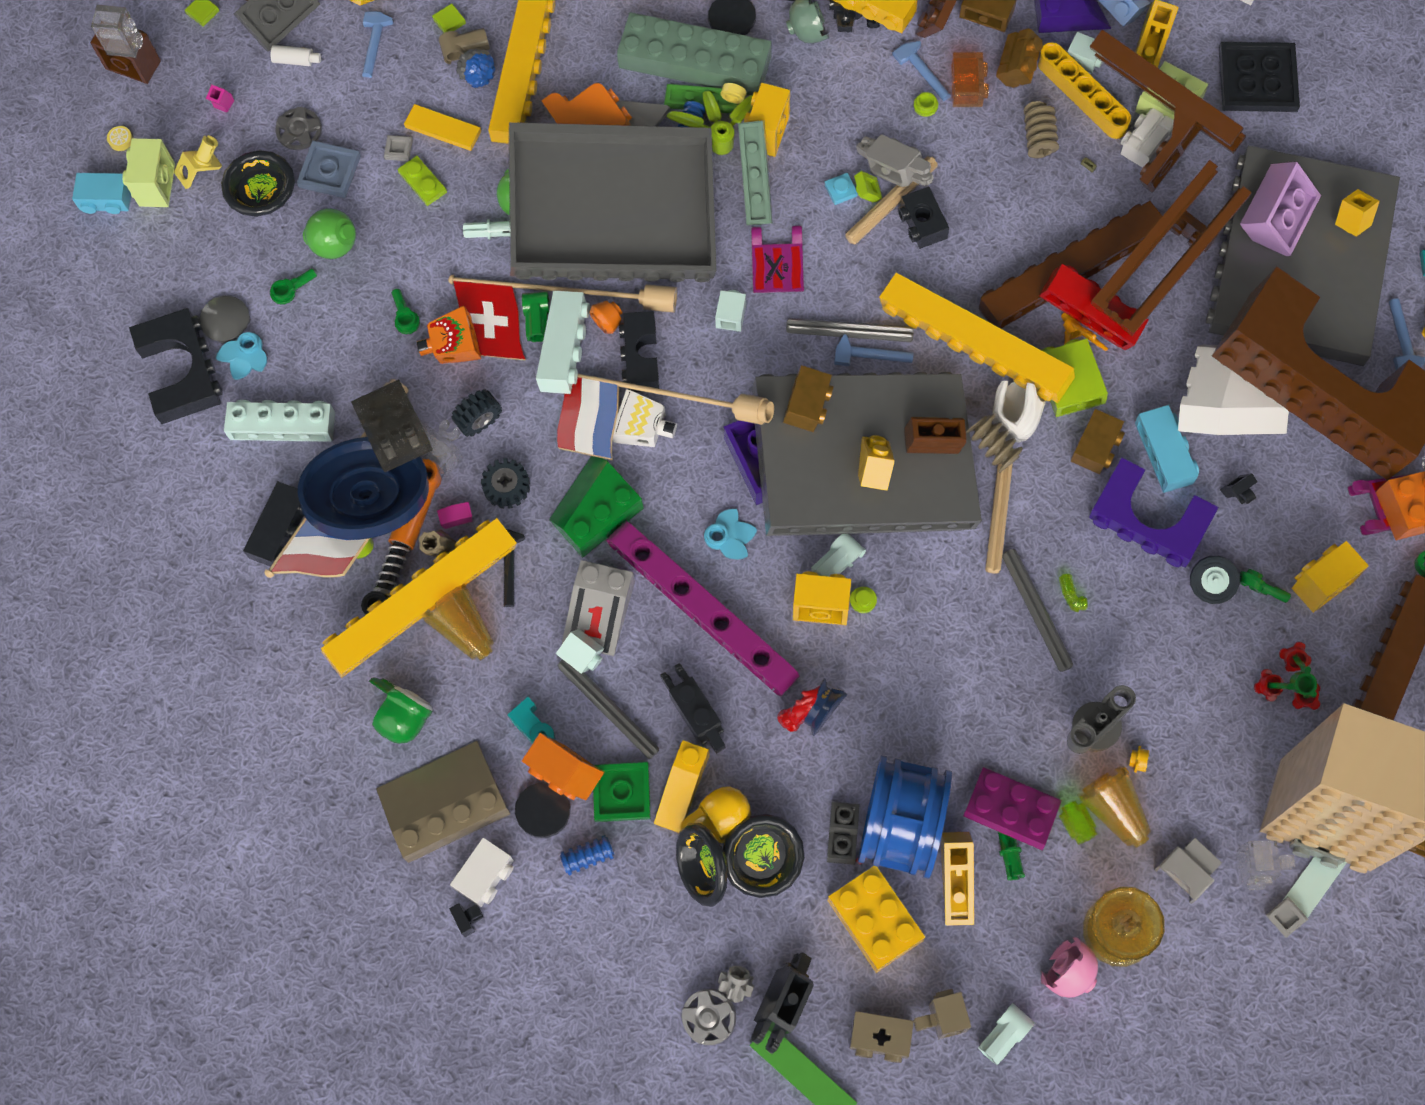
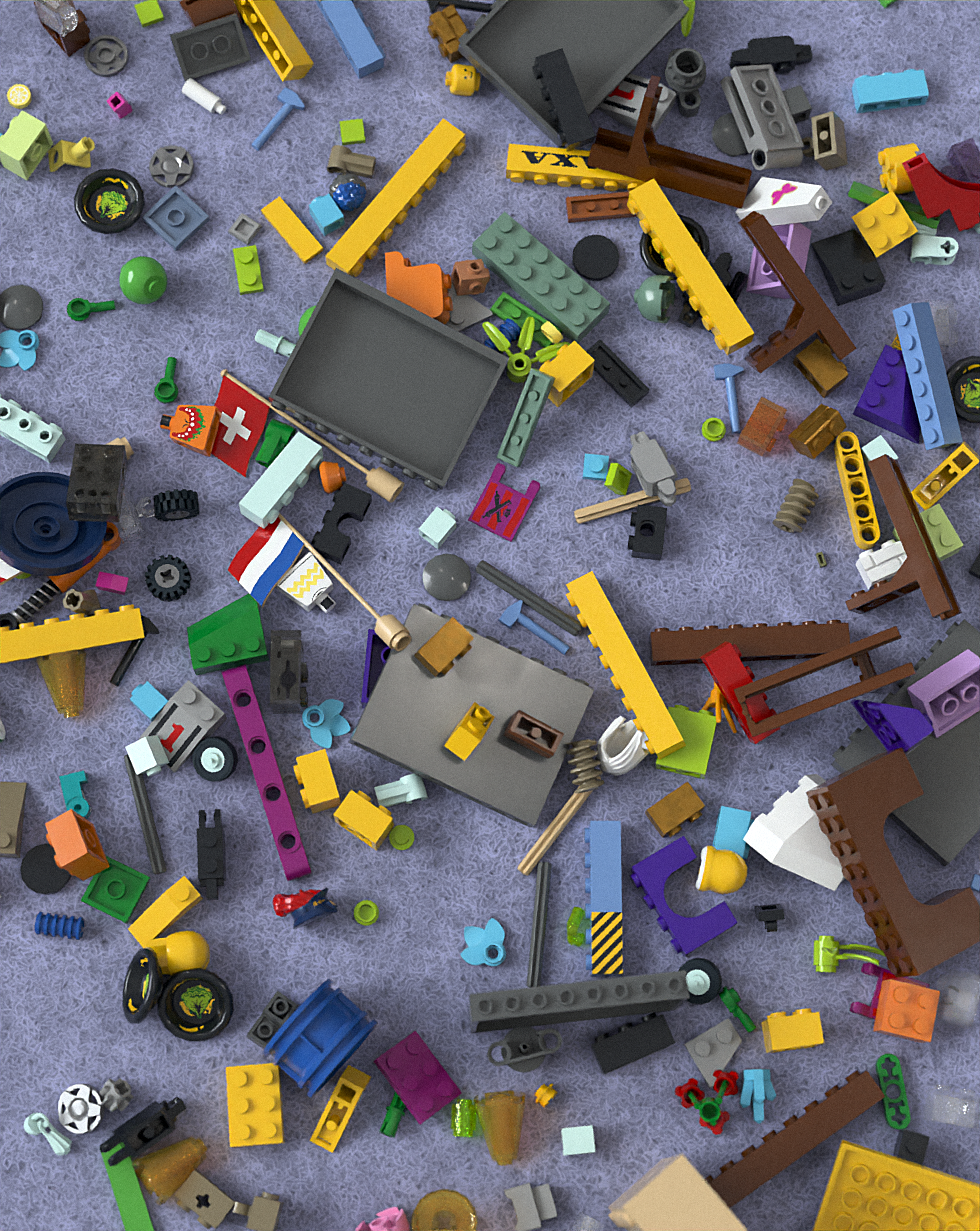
camera: 20 degrees right, 5 degrees up
(182, 65) = (106, 56): none -> flat silver wheel
(467, 97) = (326, 214): none -> medium azure brick
(552, 602) = (148, 700): none -> medium azure brick
(630, 84) = (470, 277): none -> nougat brick
(646, 621) = (215, 759): none -> black wheel
(670, 505) = (288, 672): none -> clear smoke piece
(673, 1057) = (37, 1123): none -> light aqua piece
(757, 587) = (319, 784): none -> yellow brick
(764, 350) = (446, 577): none -> dark grey dish
(815, 102) = (617, 374): none -> black plate
(828, 1025) = (169, 1167): none -> clear yellow cone
(871, 685) = (366, 912): none -> lime plate
(994, 654) = (483, 940): none -> medium azure plate
(1084, 553) = (605, 898): none -> medium blue brick
(1129, 644) = (577, 1001): none -> dark grey panel
(1176, 468) = (721, 871): none -> yellow piece
(1189, 668) = (632, 1043): none -> black brick
(1198, 782) = (578, 1140): none -> light aqua panel
(1251, 254) = (895, 724): none -> dark purple wedge
(1265, 635) = (714, 1049): none -> light grey wing
(1313, 495) = (827, 955): none -> lime plant
(1328, 649) = (758, 1086): none -> medium azure rock

